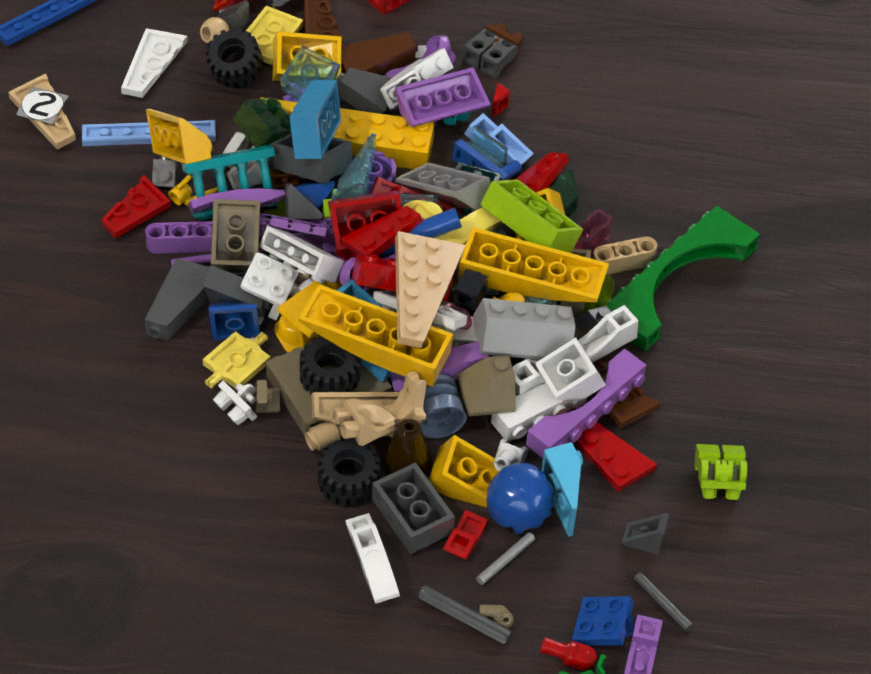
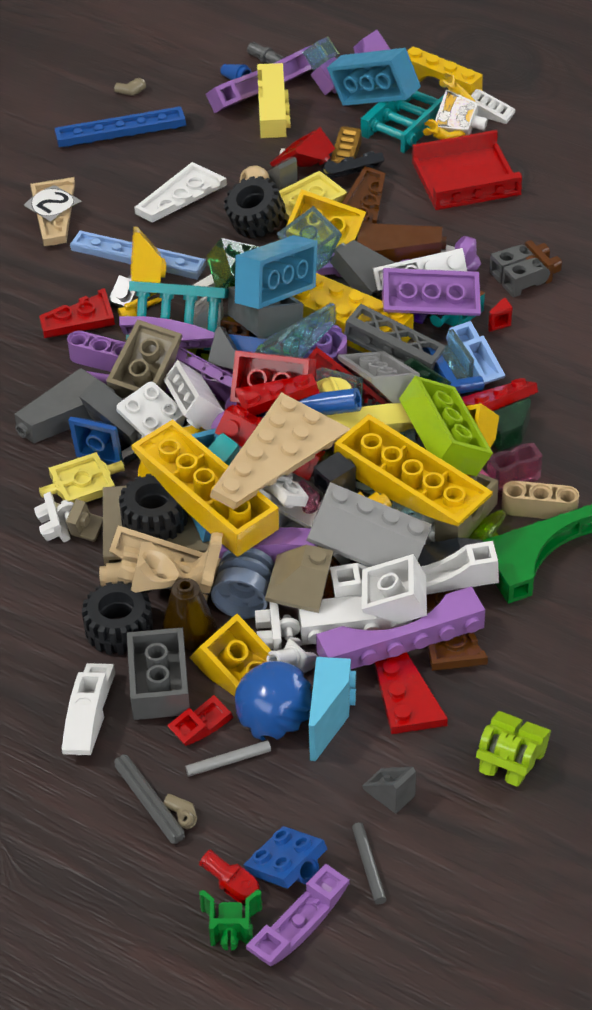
camera: 30 degrees right, 5 degrees down
(374, 294) = (224, 448): none -> teal slope
(414, 154) = (373, 339): none -> dark grey fence
(482, 433) = (269, 618): none -> white hips

